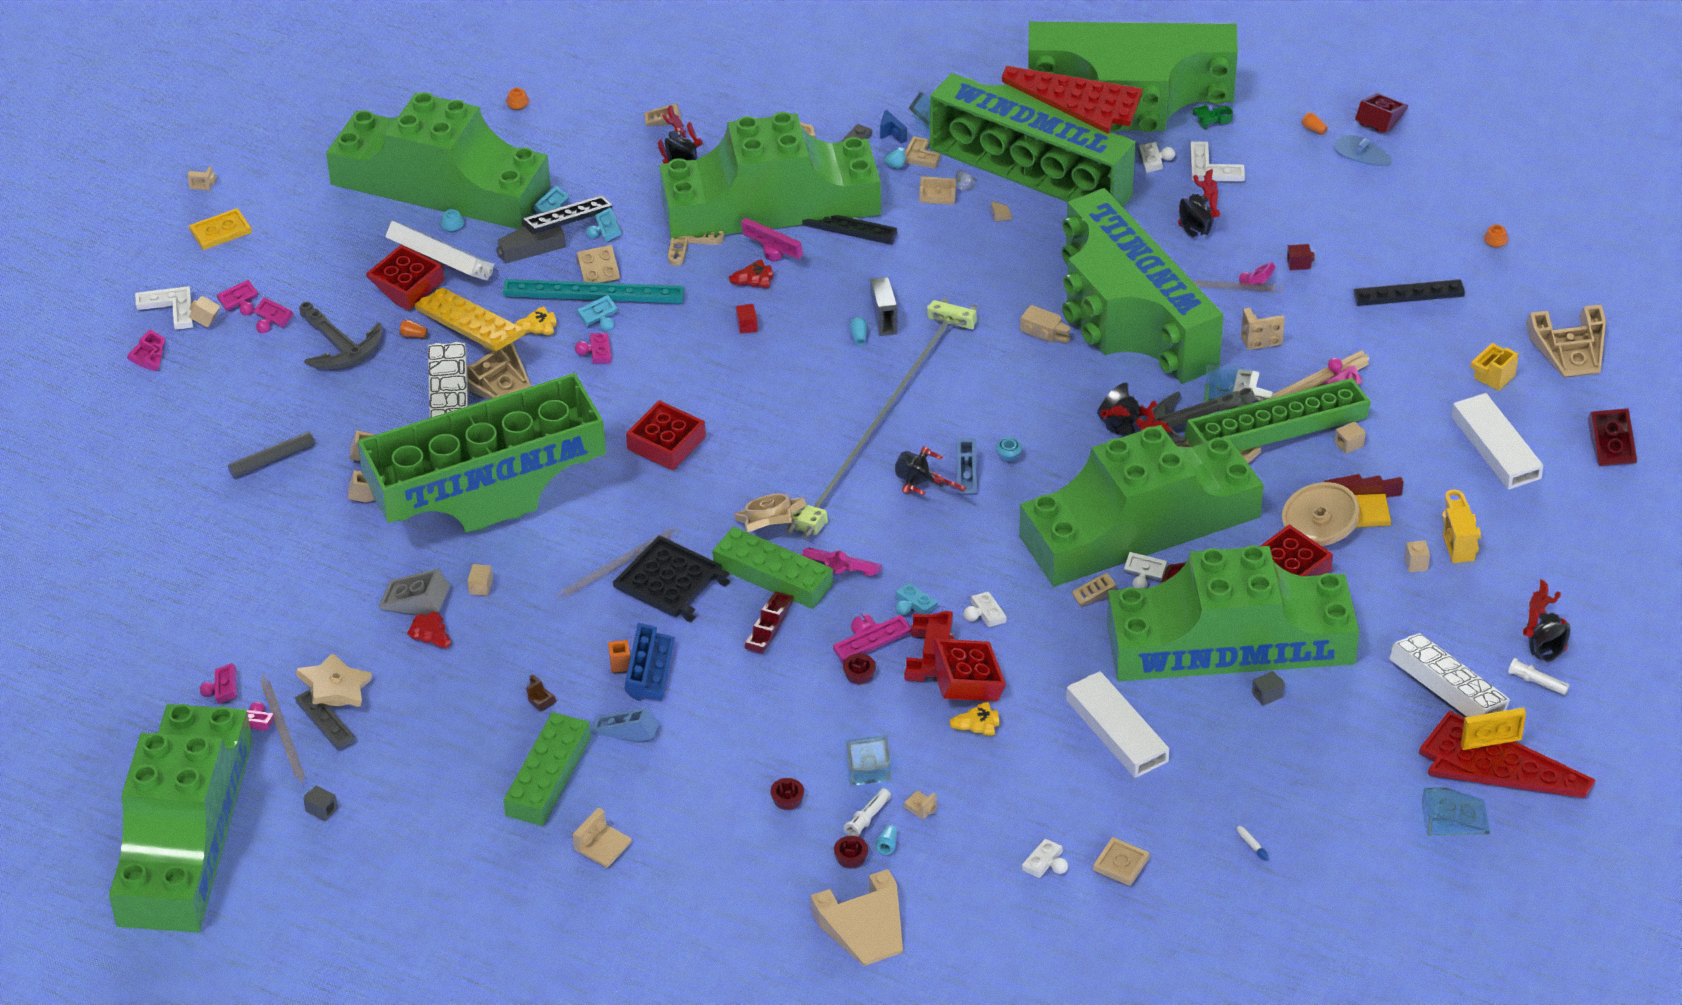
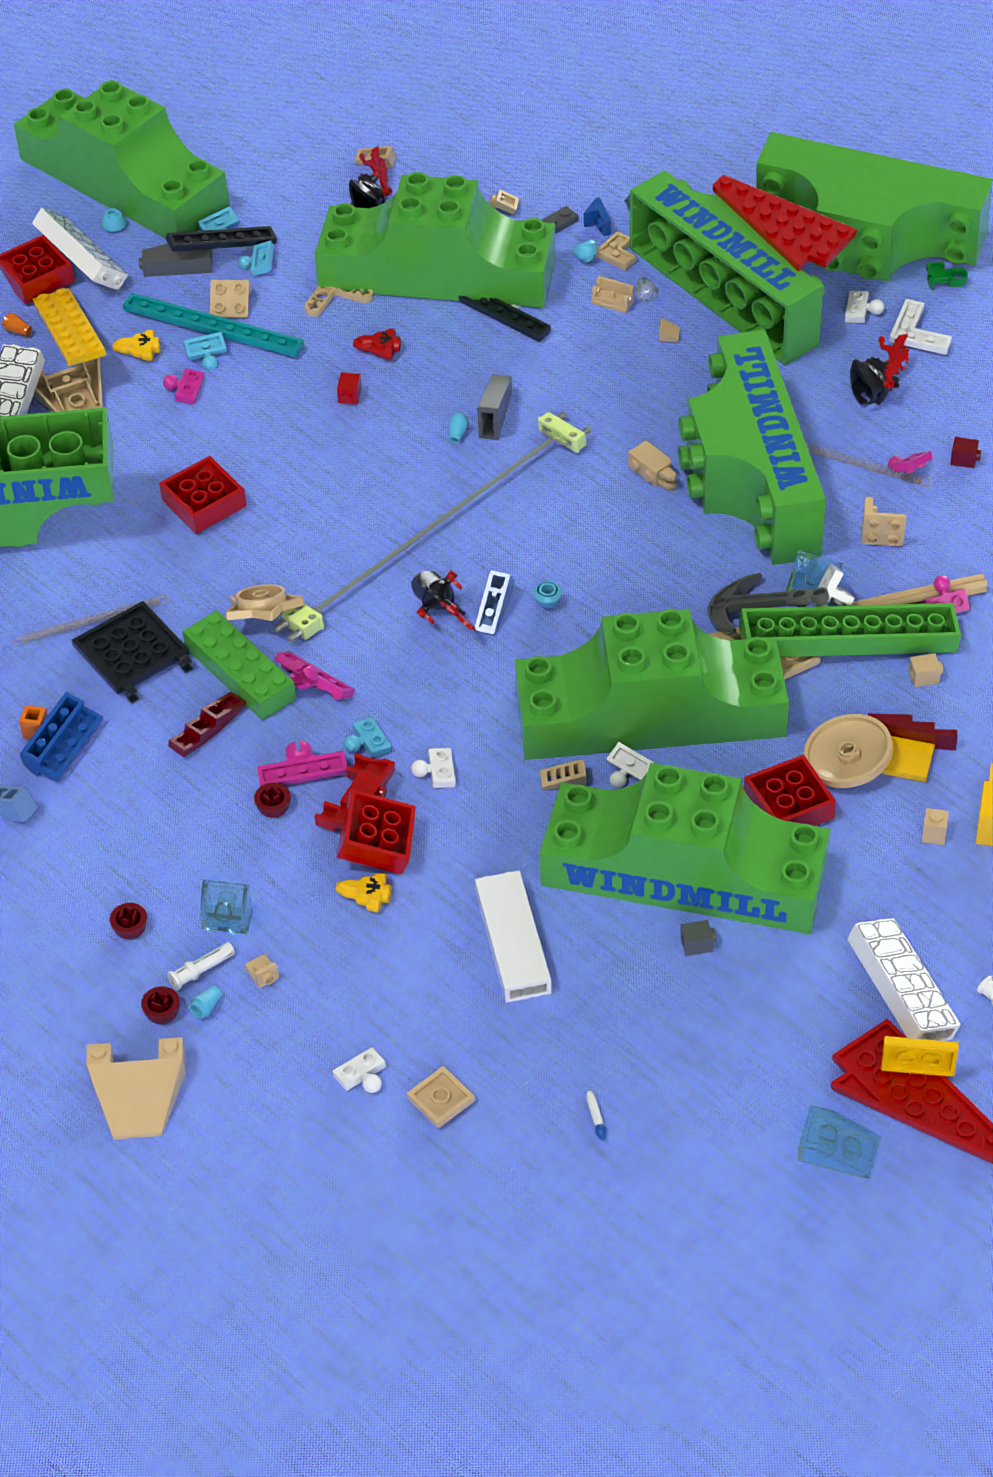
camera: 20 degrees right, 5 degrees up
(517, 99) = (240, 109): orange cone -> none
(773, 242) = (414, 314): dark pink plate -> none
(1123, 410) = (683, 583): black helmet -> none

